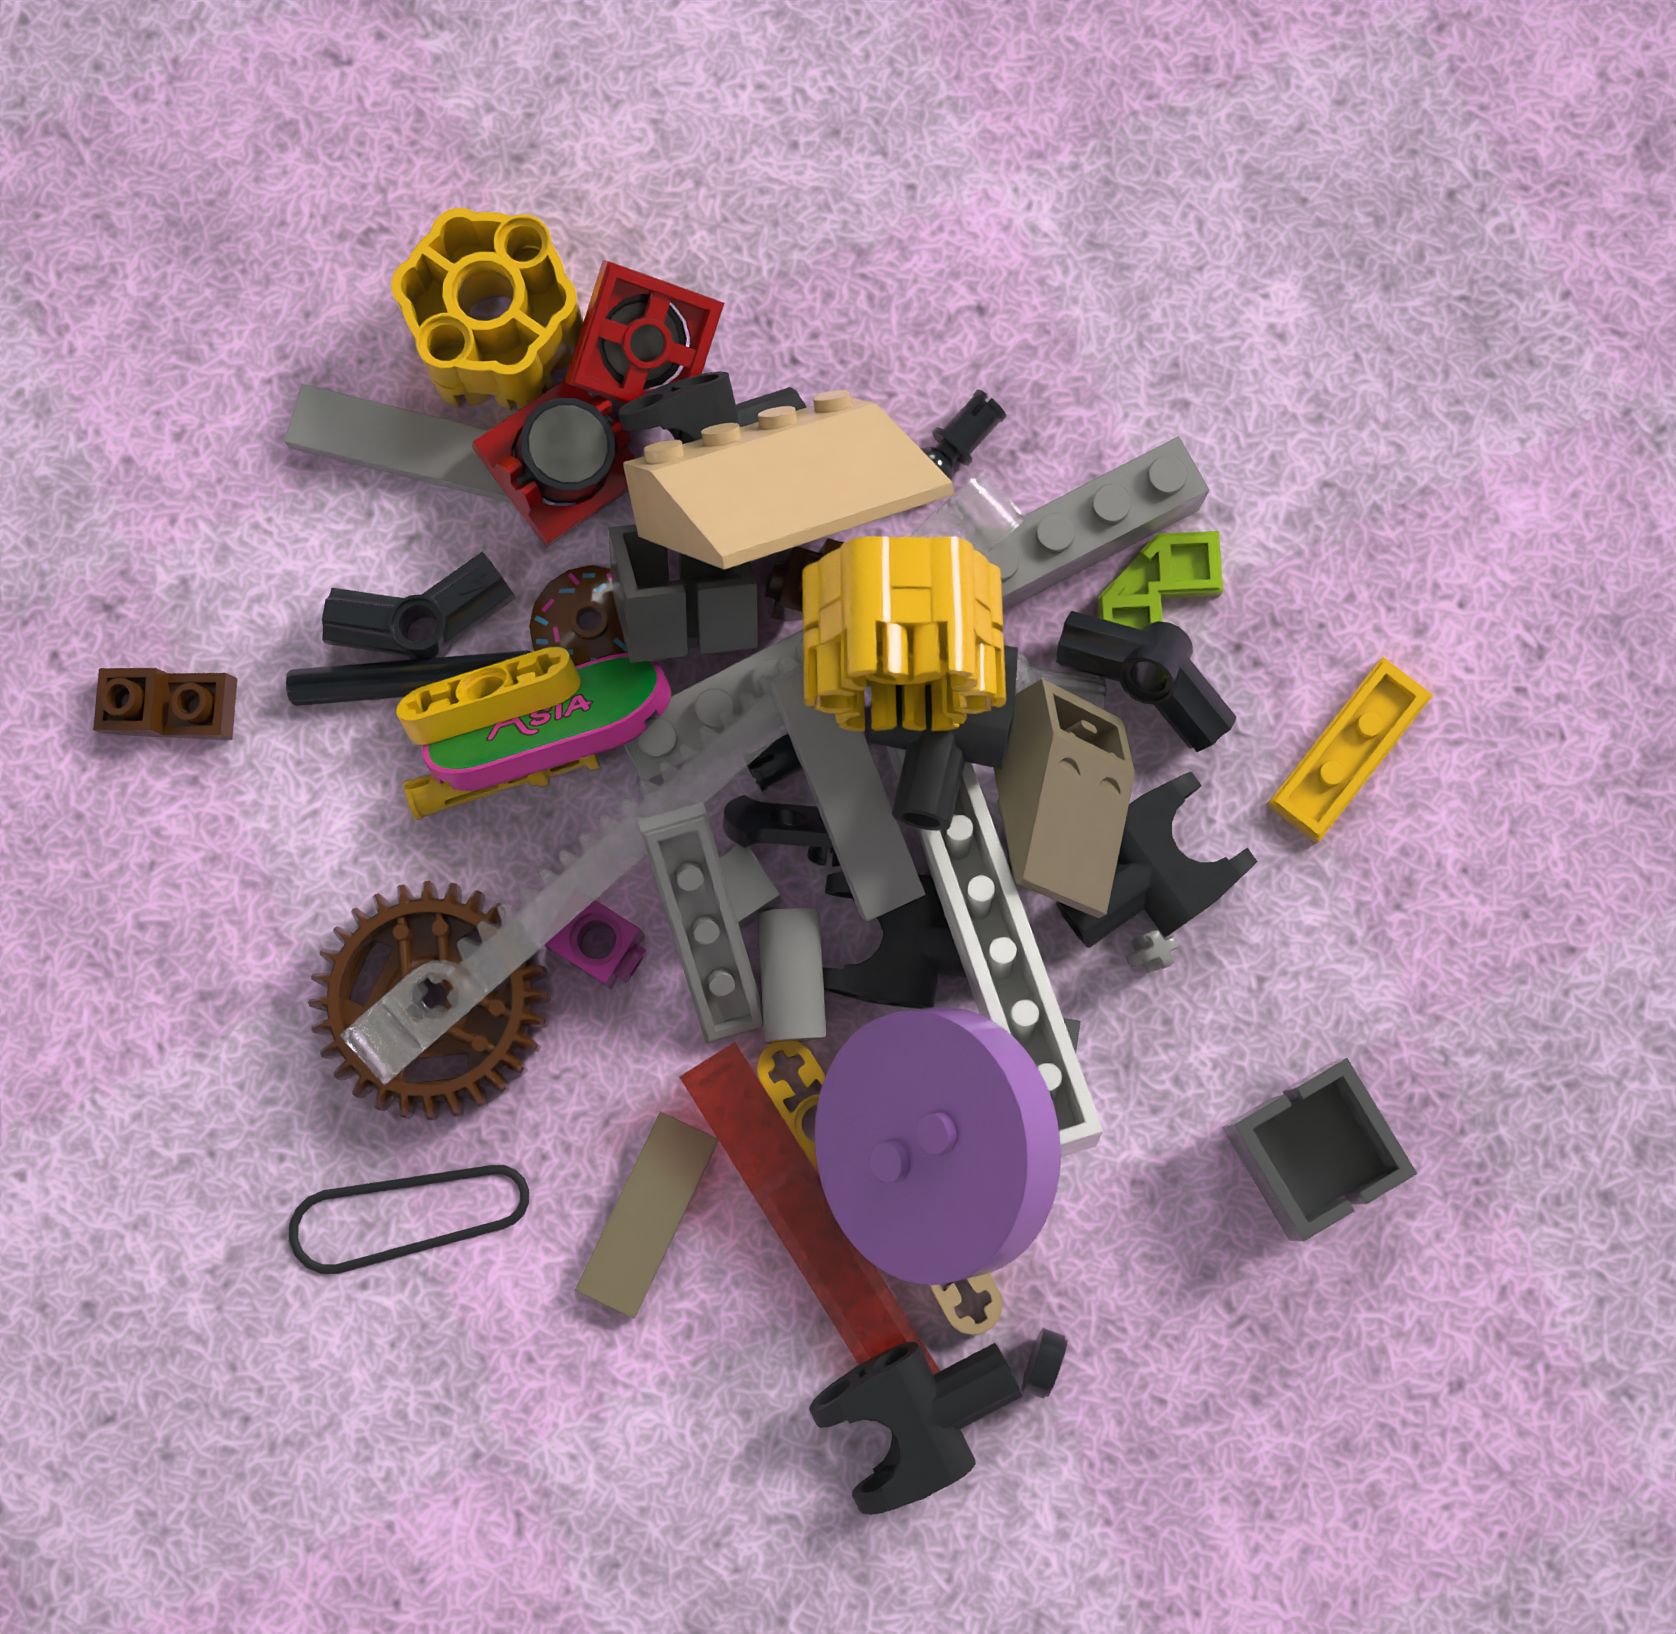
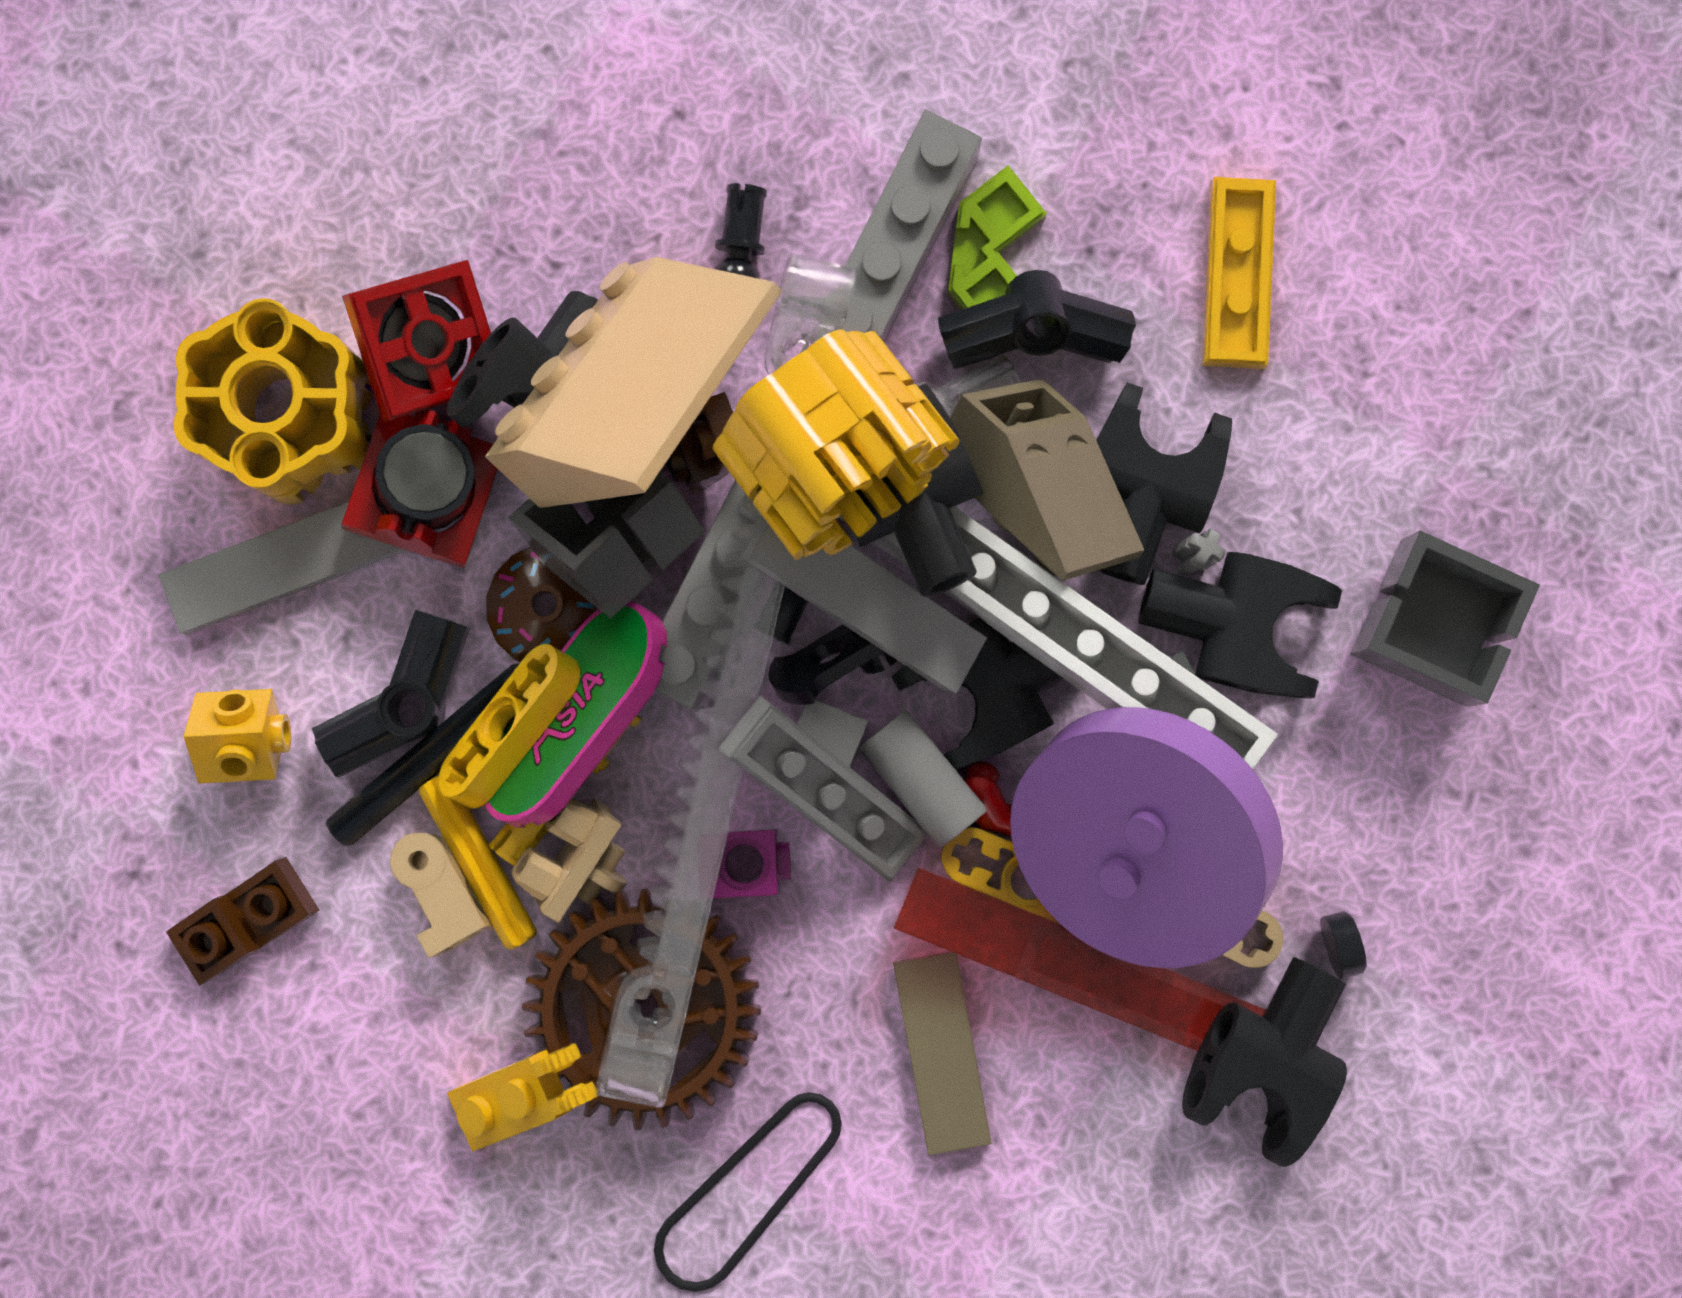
camera: 30 degrees left, 5 degrees up
(268, 551) = (236, 735): none -> yellow brick
(277, 998) = (518, 1097): none -> yellow hinge
(339, 791) = (441, 889): none -> tan leg
(384, 795) = (479, 867): none -> yellow axle
(488, 827) = (581, 866): none -> tan hips
(840, 1014) = (982, 780): none -> red arm
(1145, 1030) = (1238, 620): none -> black connector

